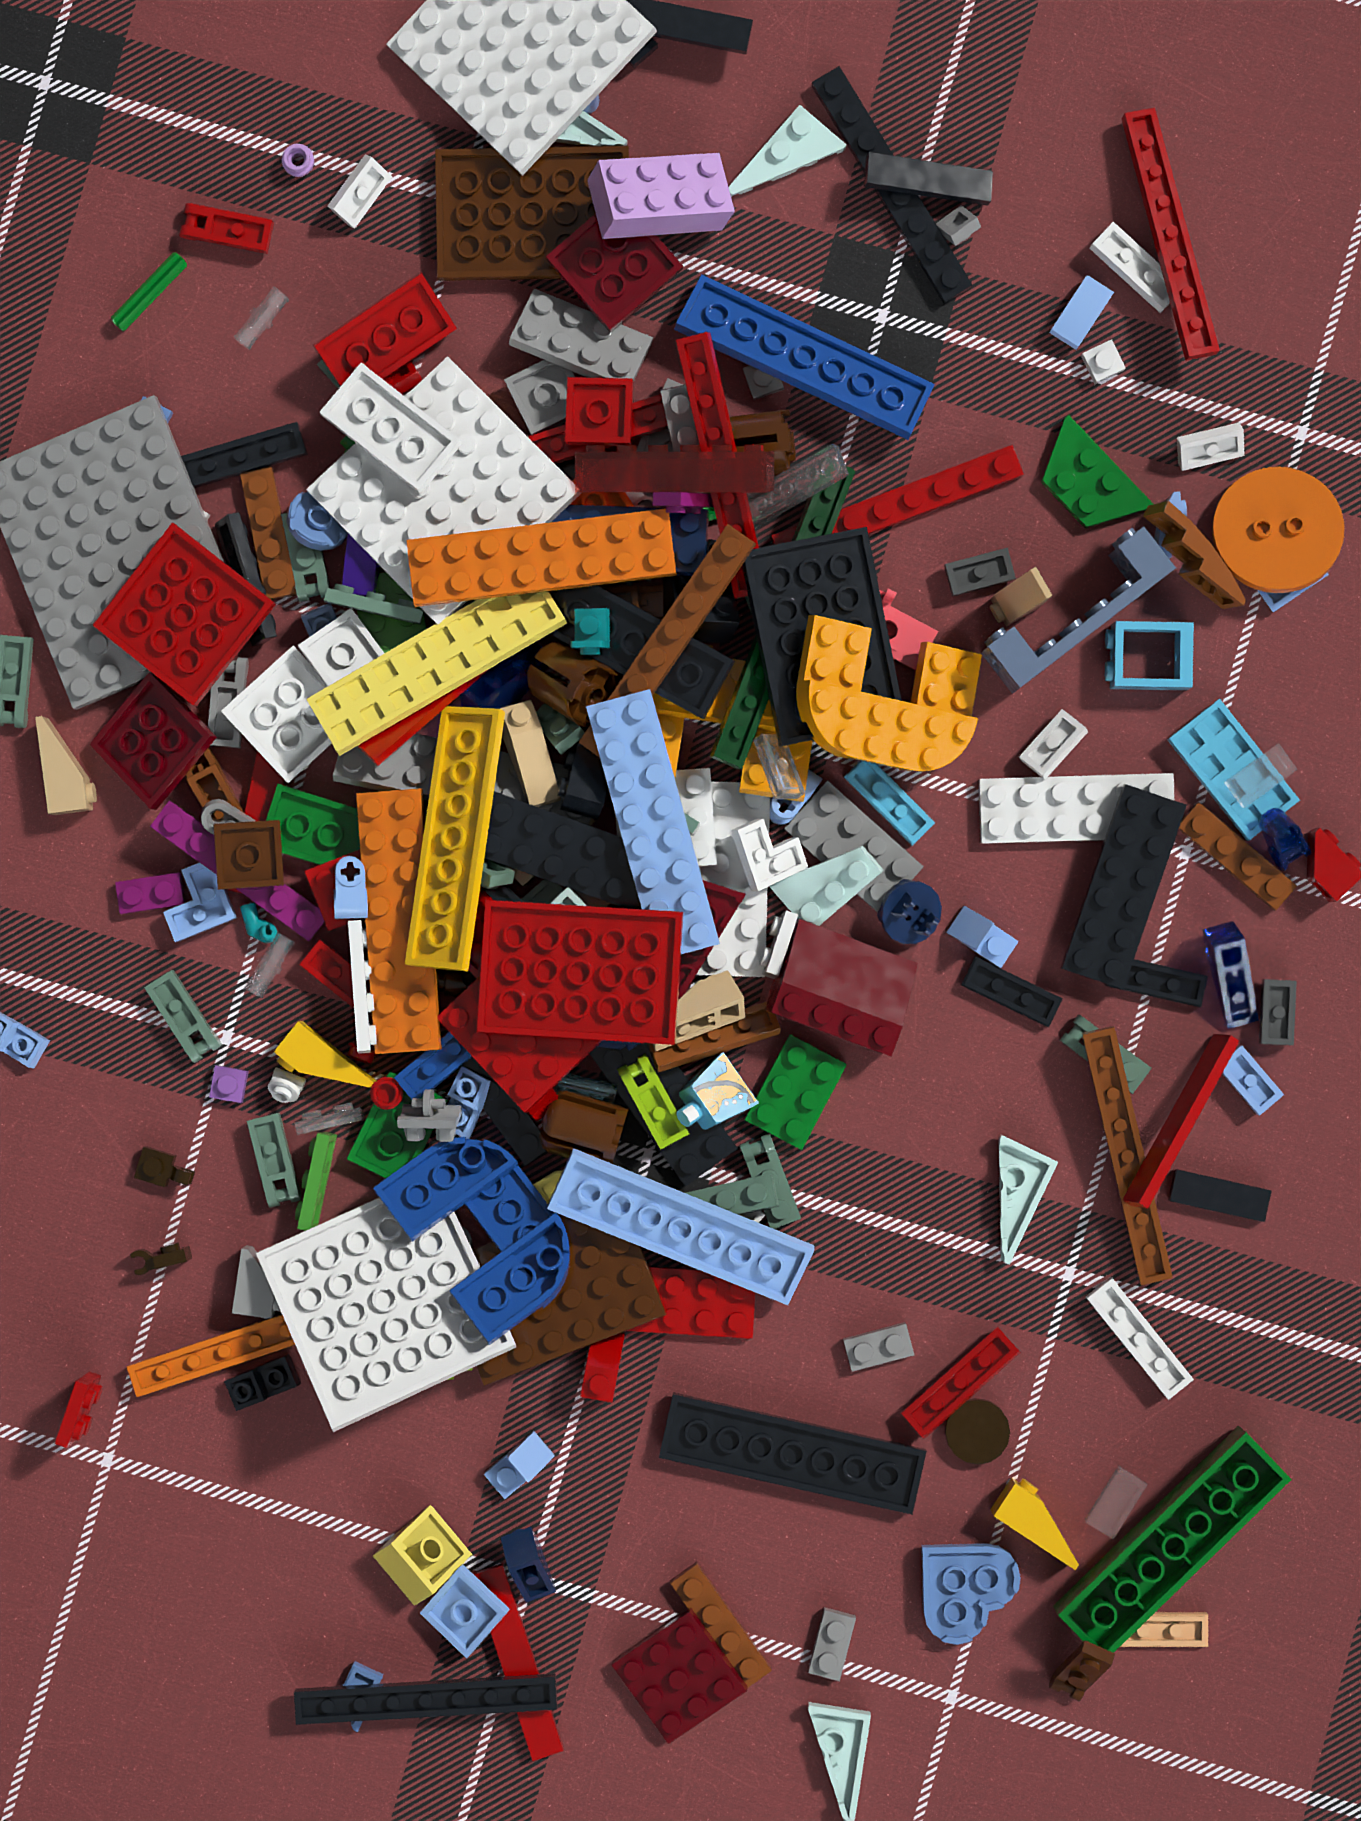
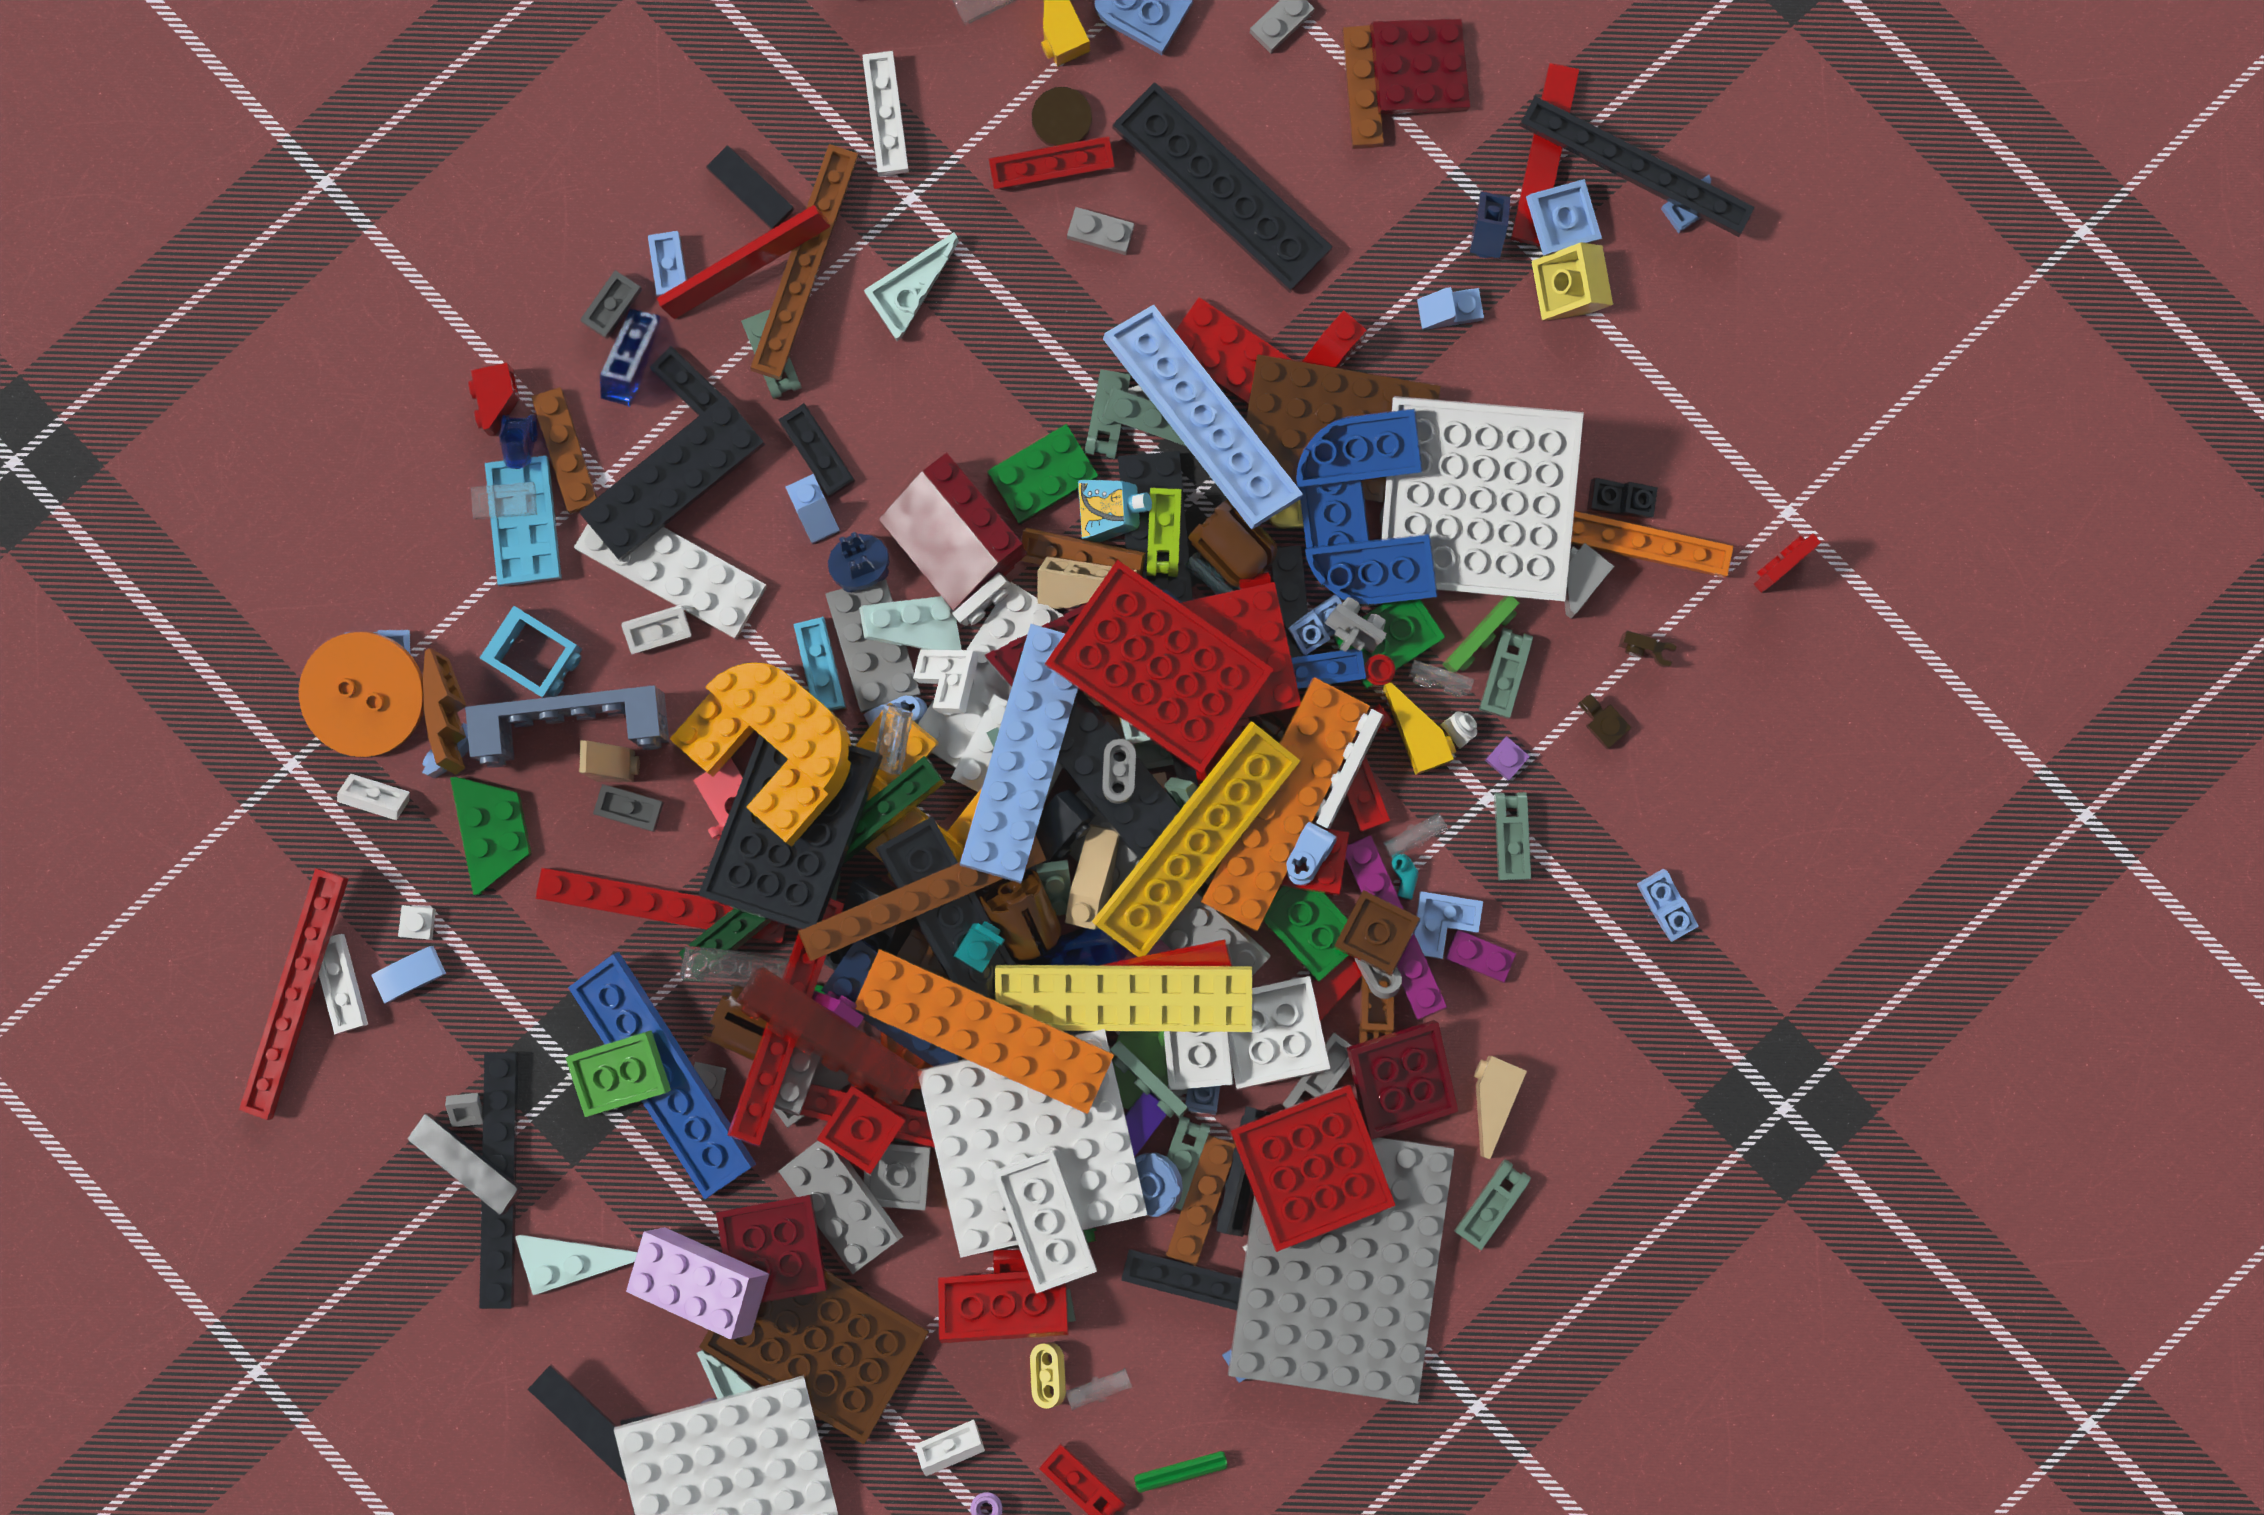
camera: 150 degrees left, 5 degrees down
(313, 305) = (1047, 1374): none -> light yellow plate
(560, 857) = (1119, 772): none -> light grey plate
(843, 334) = (618, 1073): none -> bright green plate

